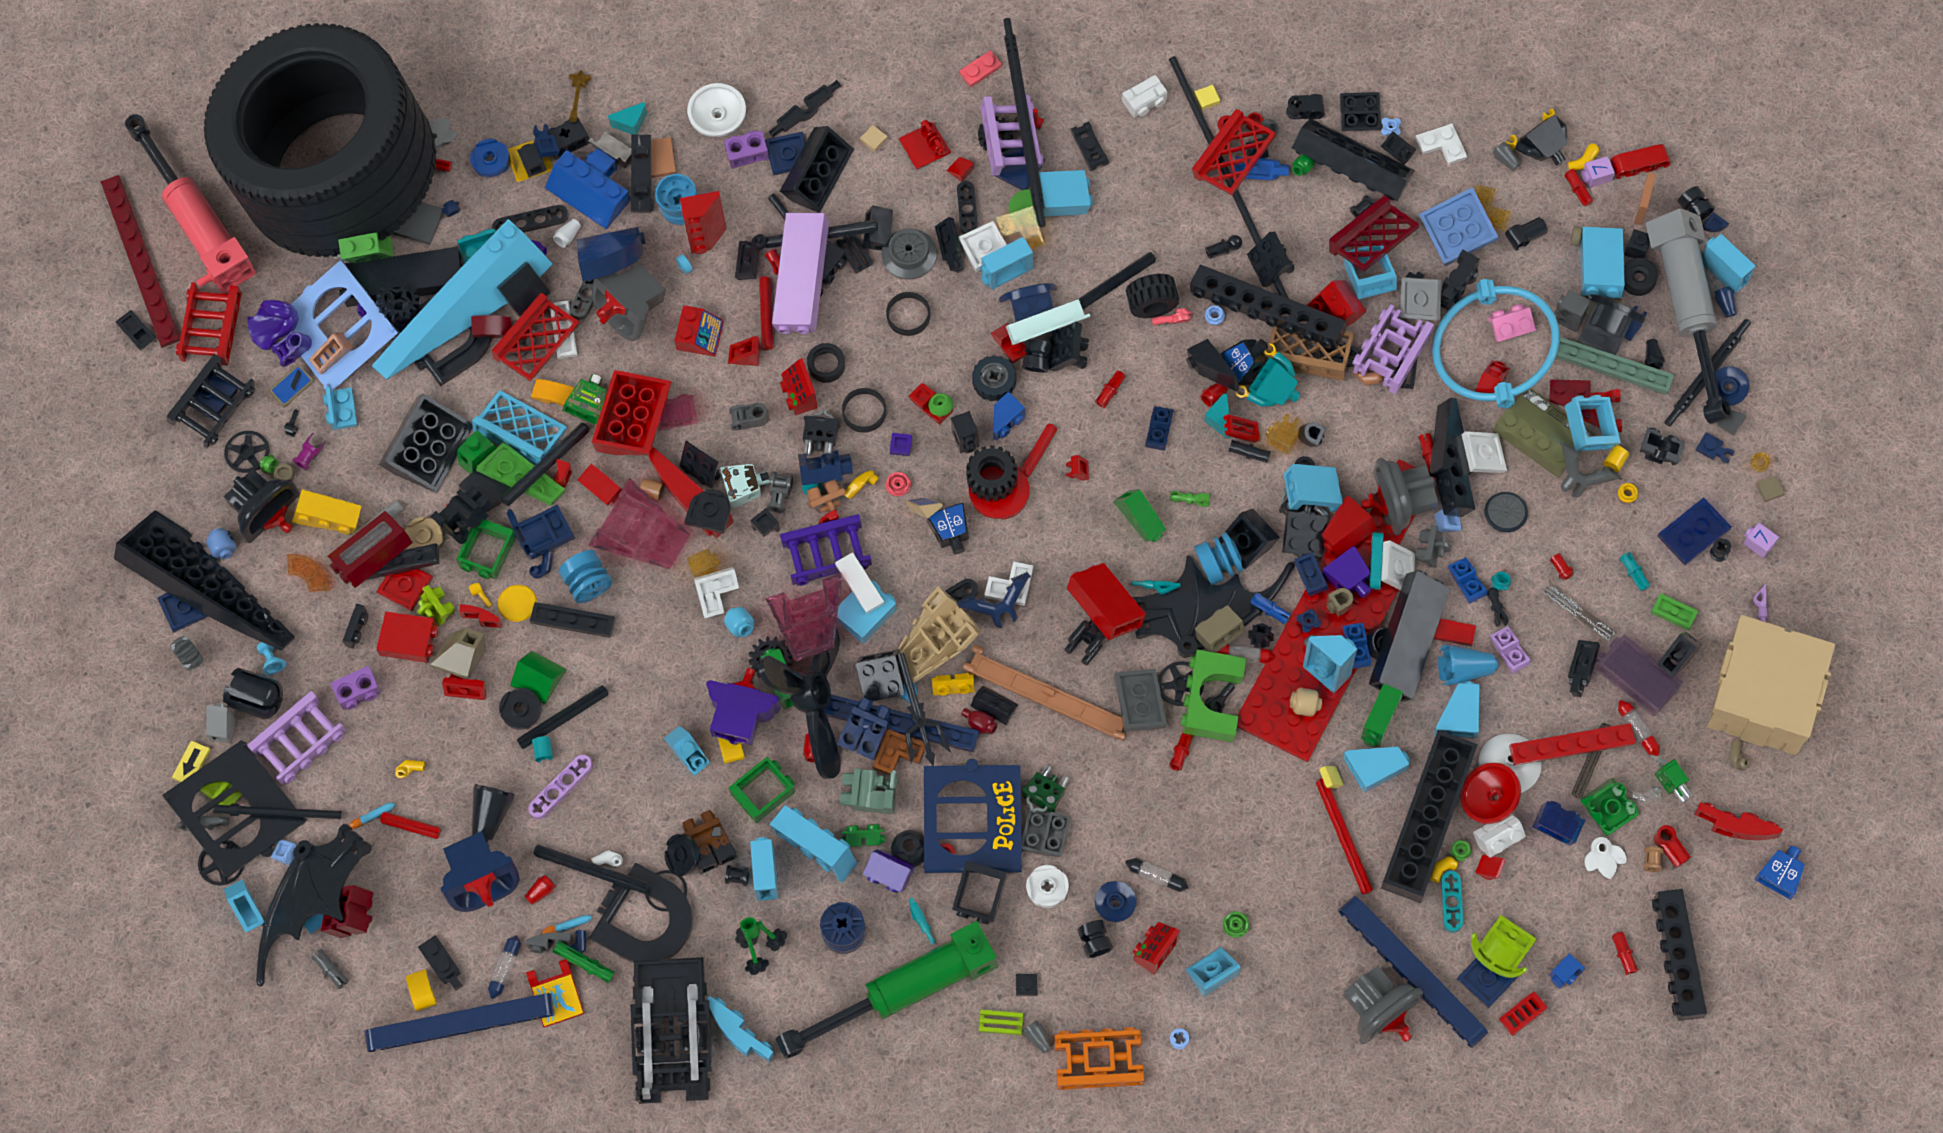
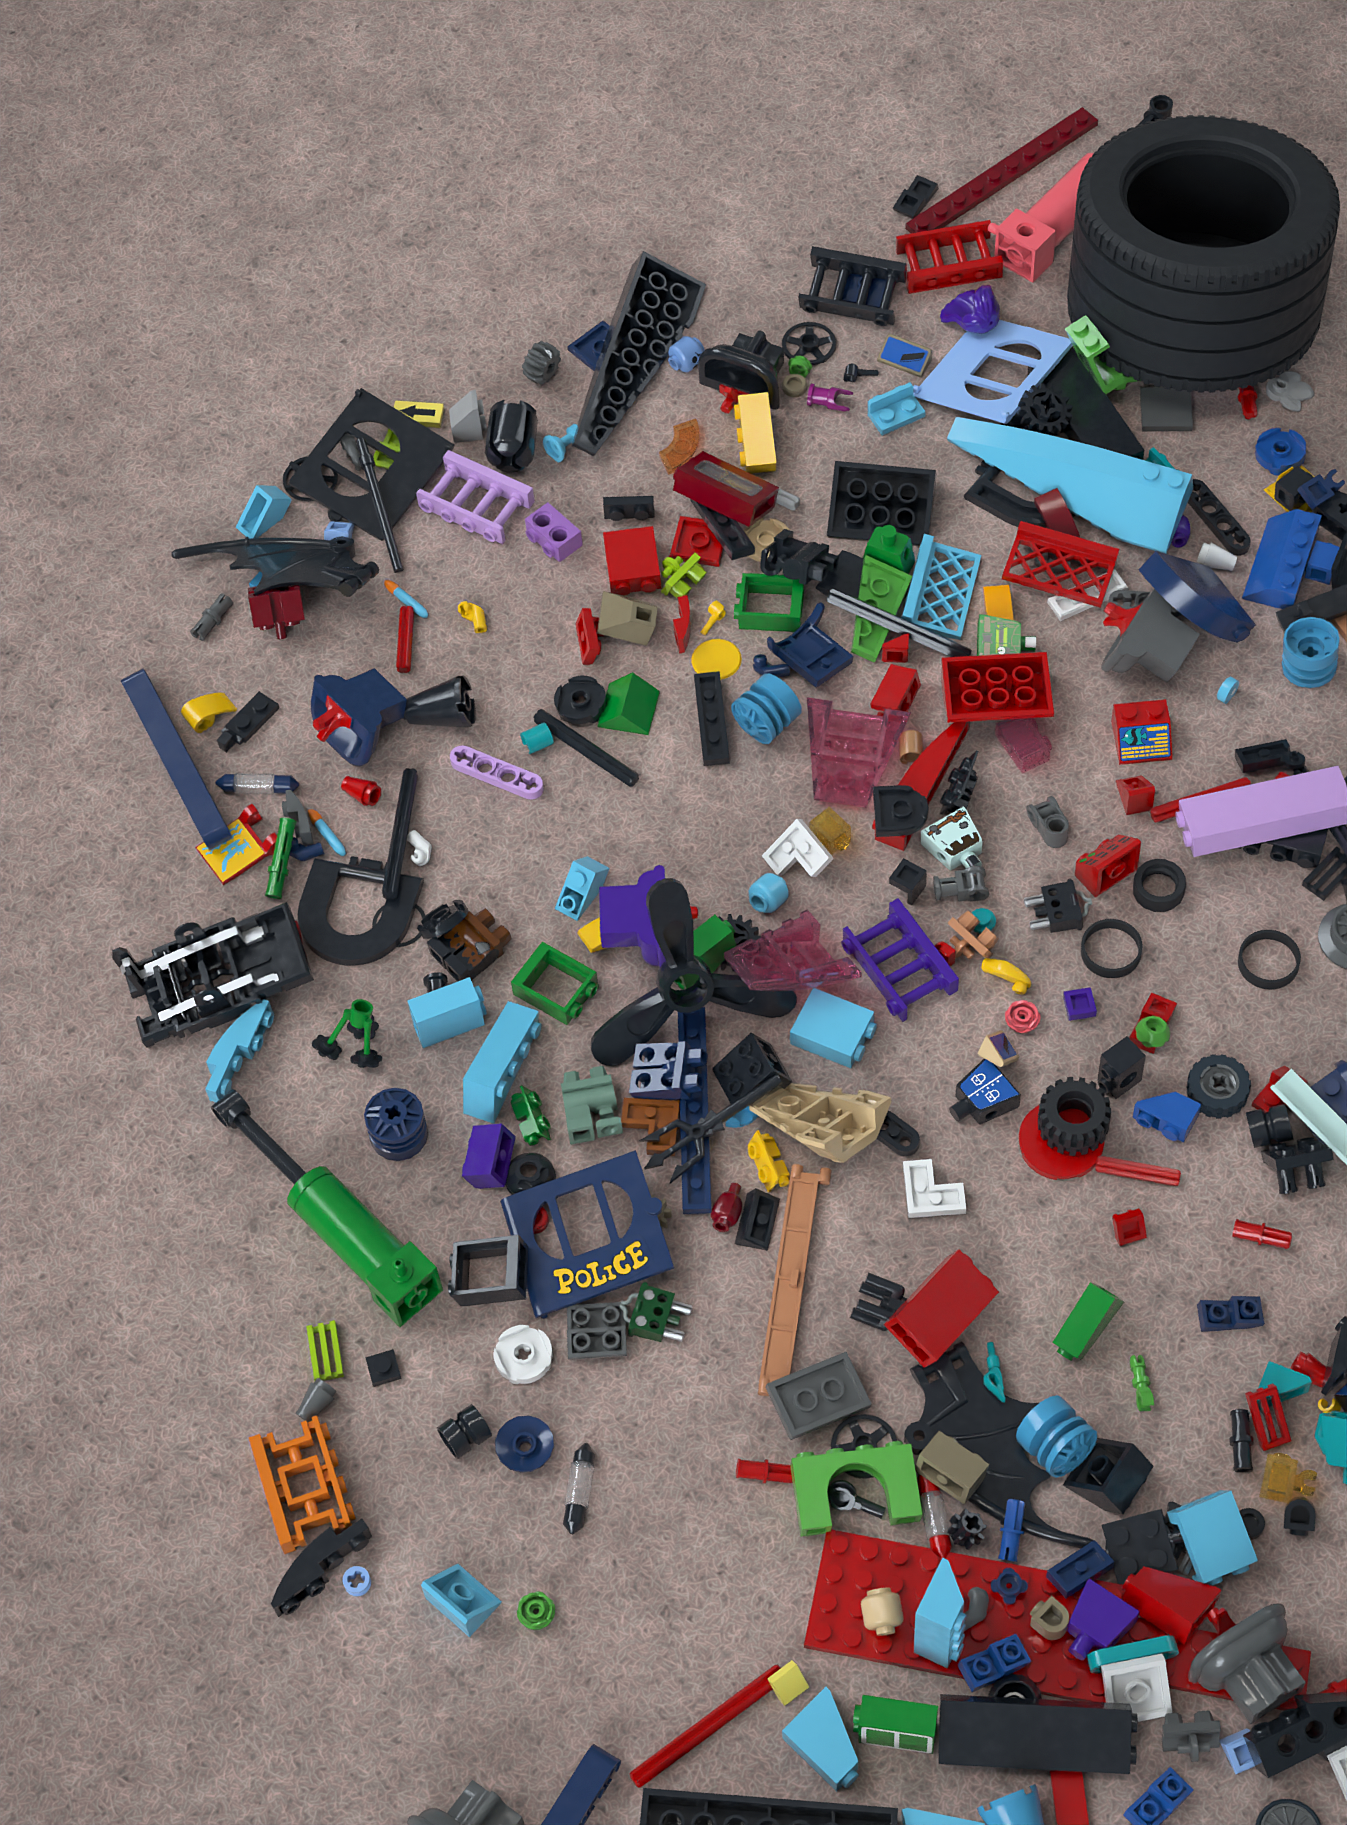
camera: 75 degrees right, 10 degrees down
(288, 348) = (950, 339): dark purple piece -> none
(341, 346) = (961, 375): nougat slope -> none
(451, 208) = (1195, 433): dark blue plate -> none
(522, 288) = (1119, 529): black tile -> none
(703, 220) = (1283, 677): red slope -> none
(824, 468) = (1005, 918): dark blue hips -> none
(859, 583) = (861, 1005): white tile -> none
(918, 916) = (435, 1216): teal hand -> none
(1003, 606) = (884, 1179): dark blue piece -> none
(1156, 946) = (471, 1512): red slope -> none
(1166, 1068) = (307, 1572): none -> black slope

